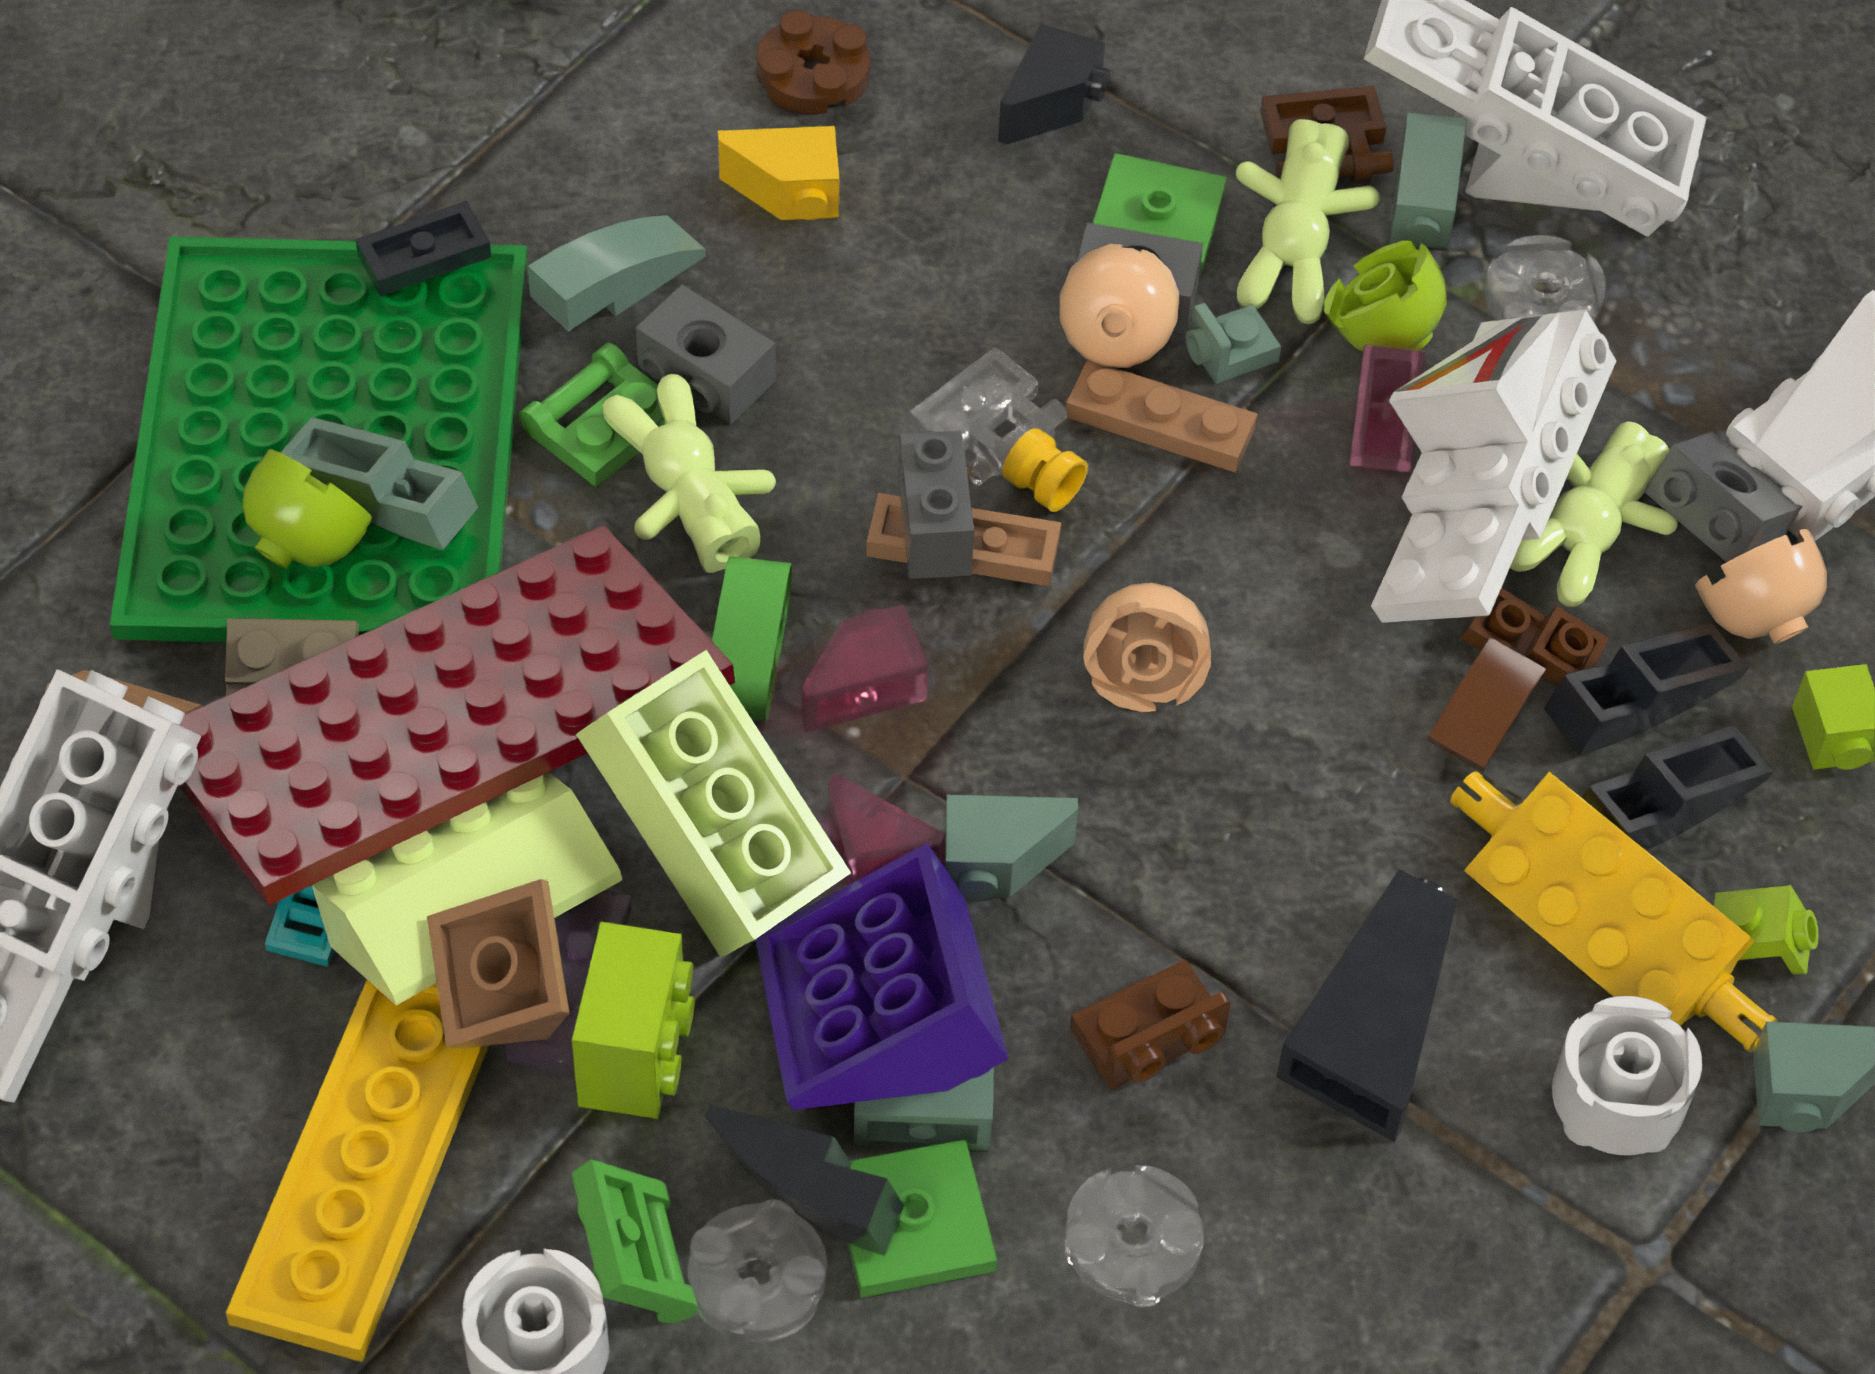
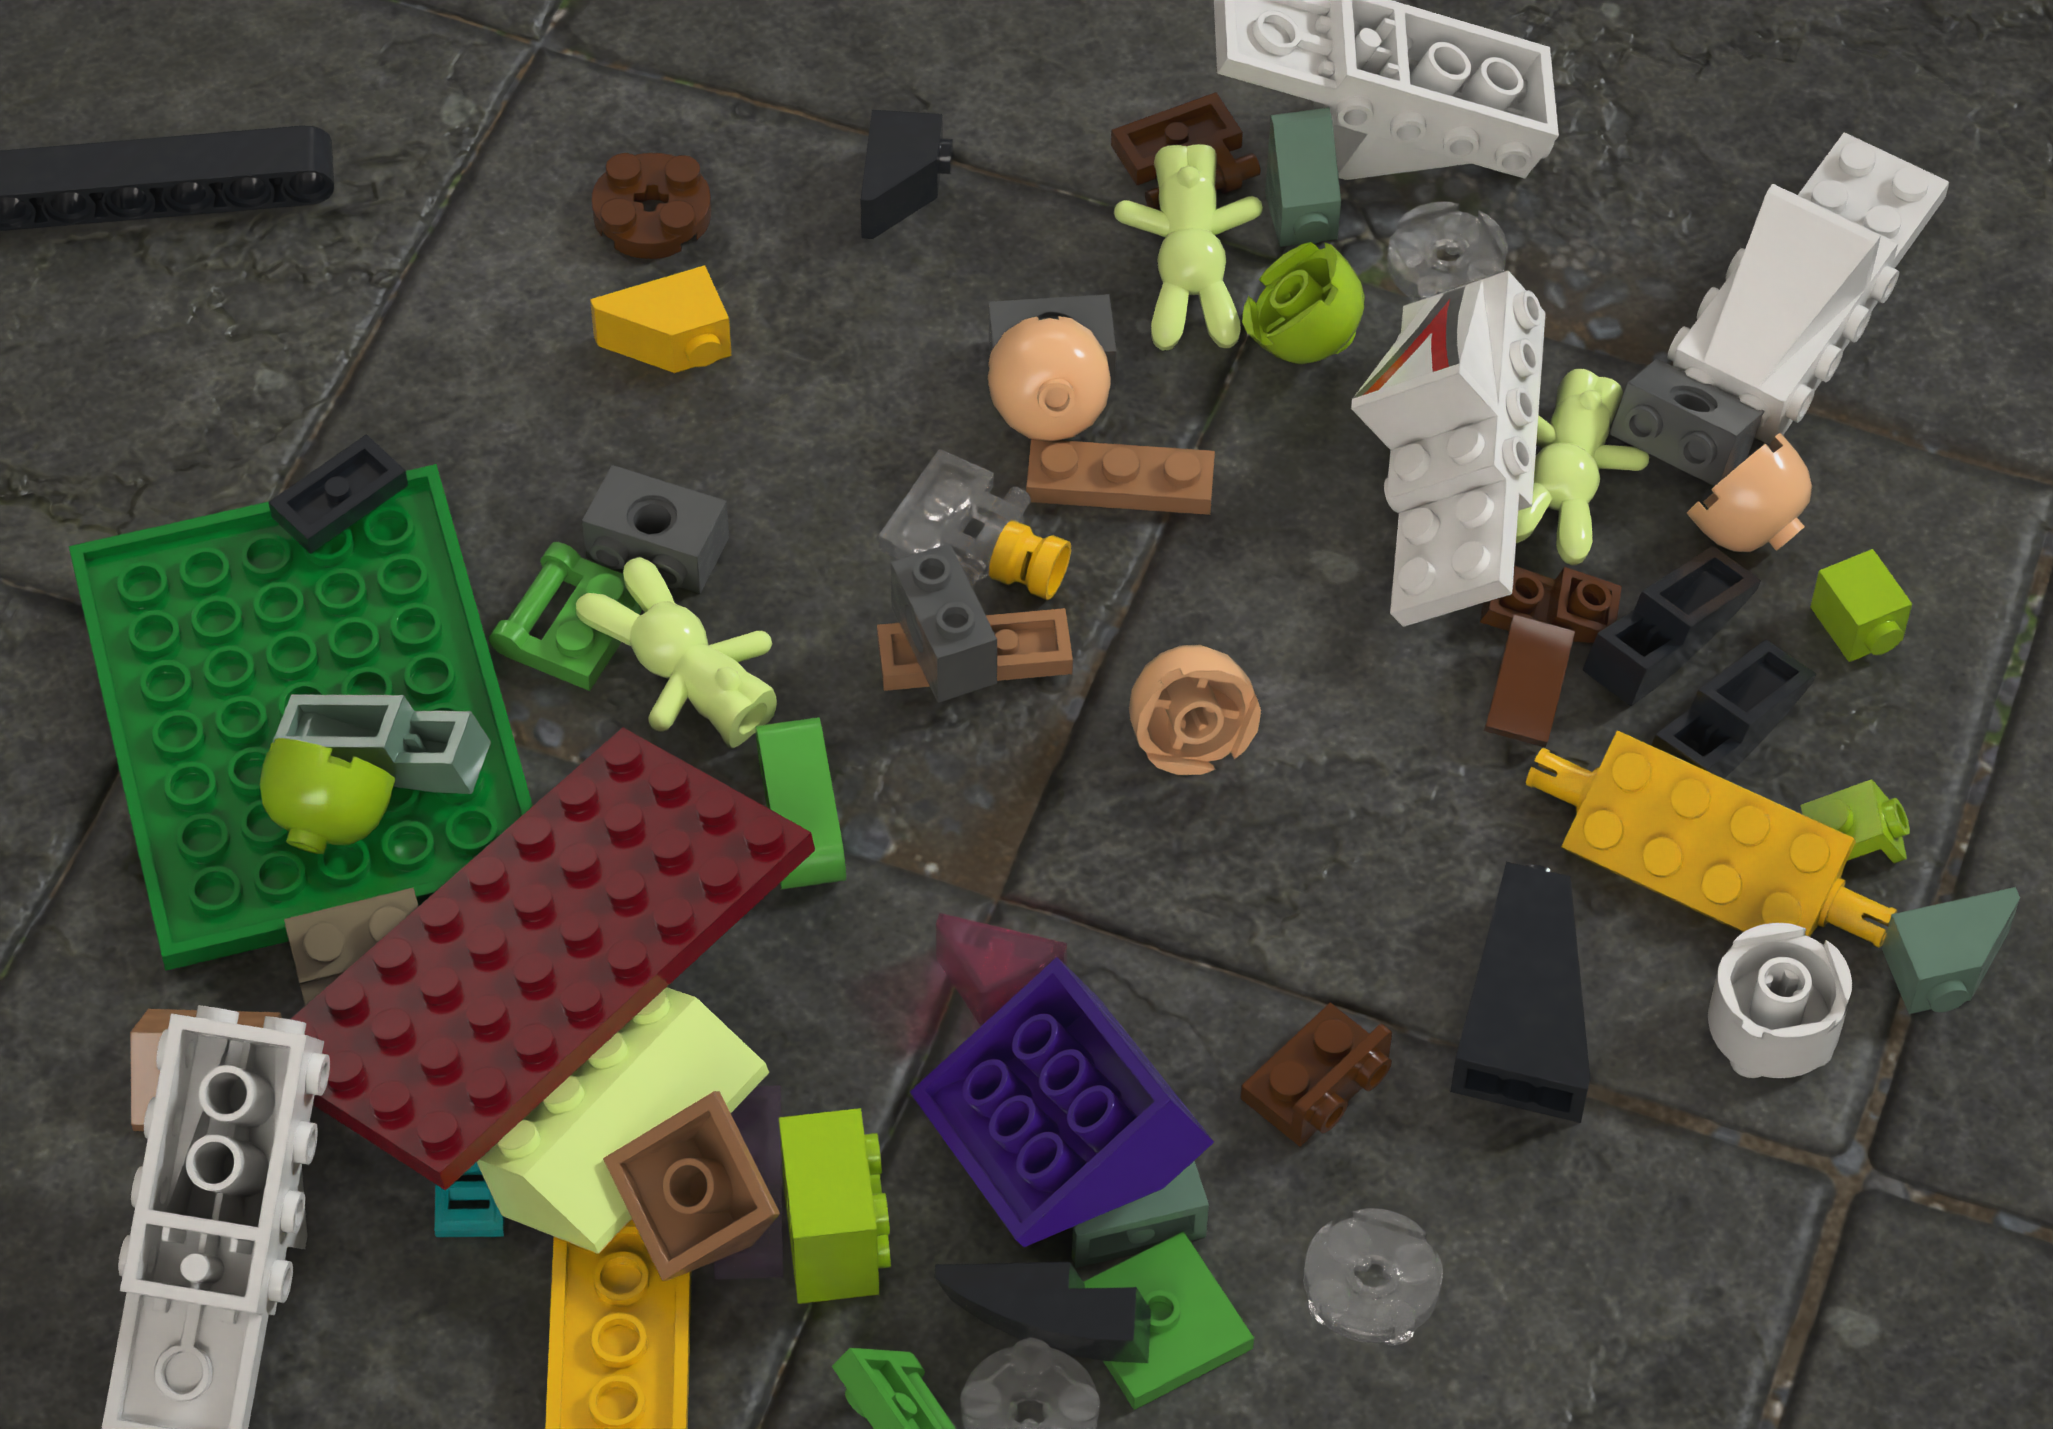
camera: 15 degrees left, 0 degrees up
(611, 268) = (528, 466): sand green slope -> none
(713, 804) = (839, 974): yellowish green slope -> none
(865, 670) = (929, 802): clear pink slope -> none
(1004, 840) = (1119, 934): sand green slope -> none
(1161, 200) = (1045, 259): bright green plate -> none
(1230, 342) = (1163, 385): sand green bracket -> none
(1378, 433) = (1334, 433): clear pink slope -> none

